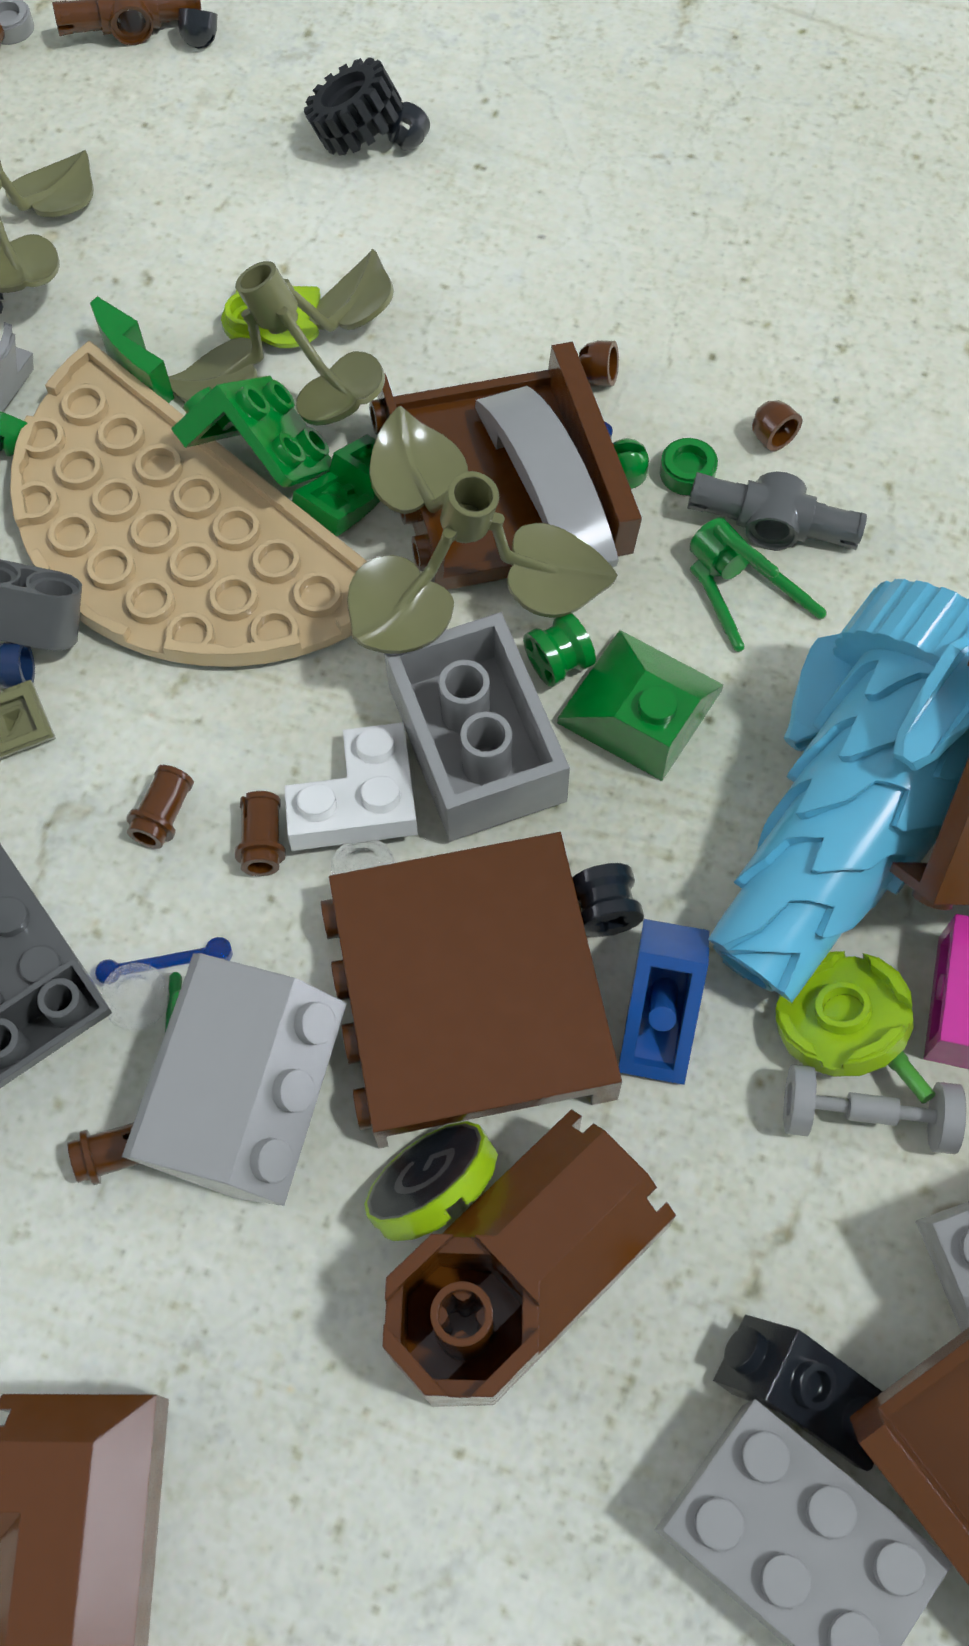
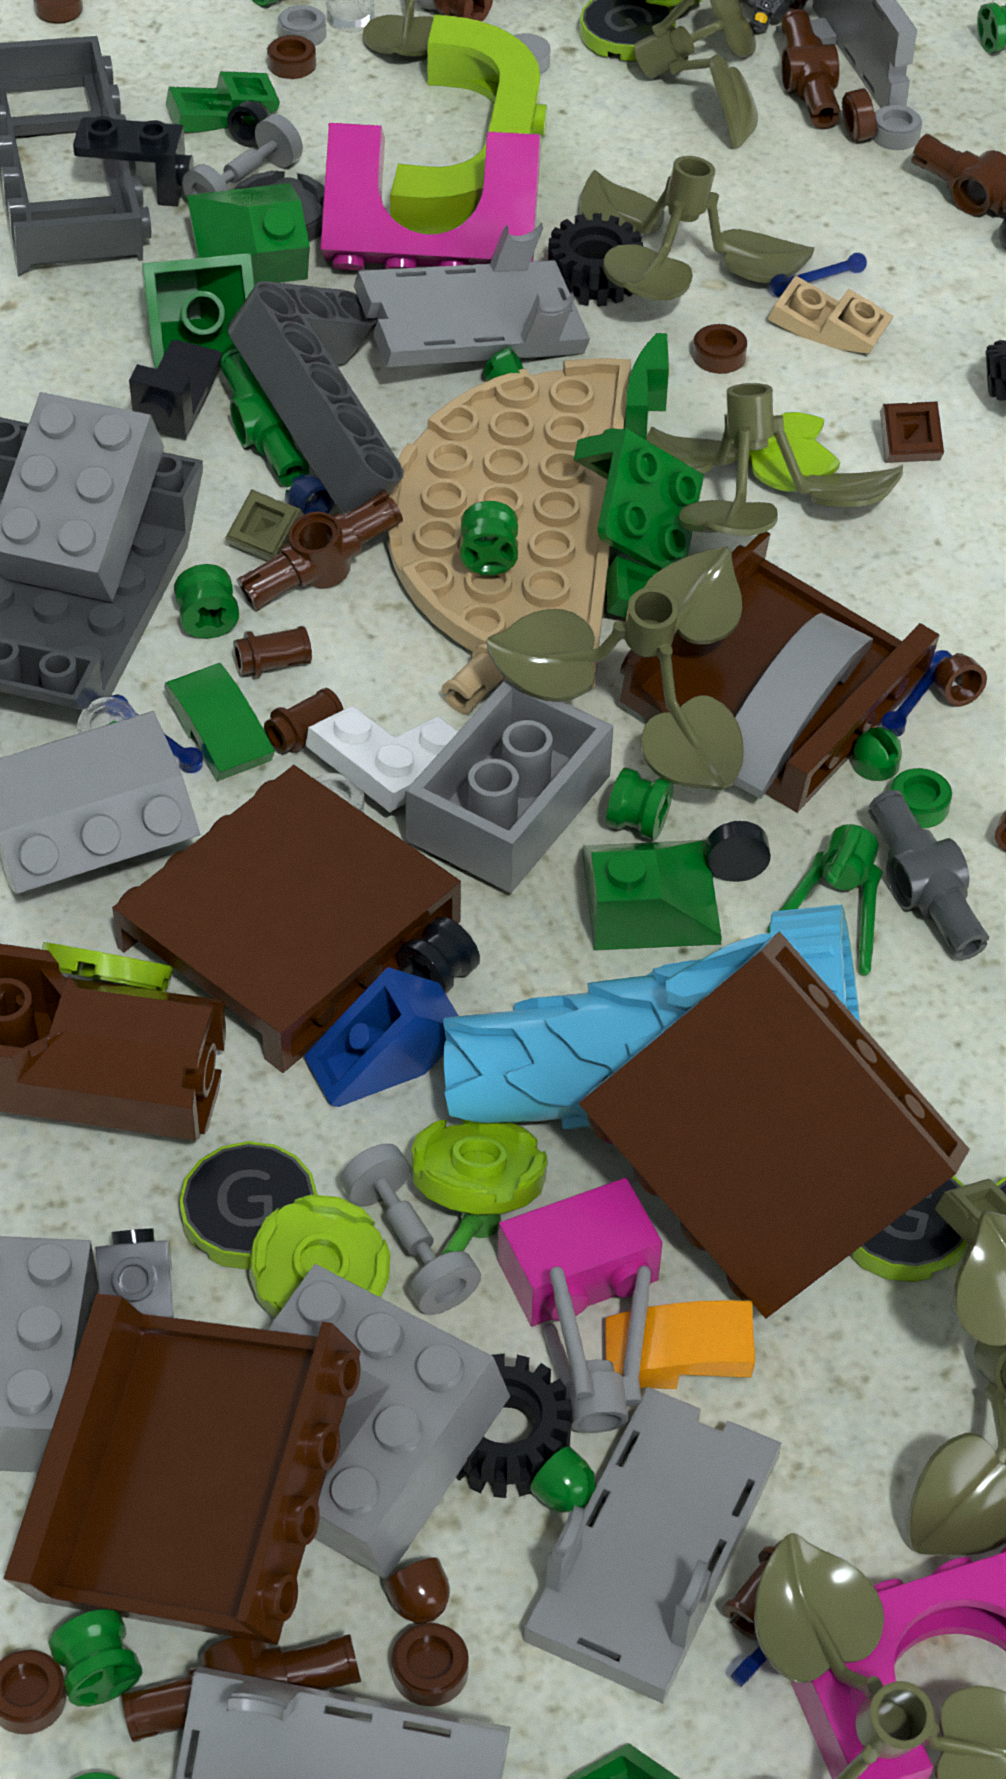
camera: 50 degrees right, 15 degrees down
(60, 821) = (206, 601): none -> green wheel
(86, 724) = (319, 550): none -> reddish brown pin
(122, 140) = (855, 263): none -> clear blue hinge
(123, 280) = (719, 348): none -> reddish brown tile
(176, 189) = (845, 324): none -> tan slope
(201, 897) = (220, 720): none -> green slope
(206, 563) = (489, 538): none -> green wheel
(322, 660) = (472, 681): none -> tan pin
(333, 223) = (911, 432): none -> reddish brown tile
(658, 615) = (738, 851): none -> black tile
(750, 1221) = (234, 1193): none -> black tile
(860, 1206) = (320, 1233): none -> lime tile

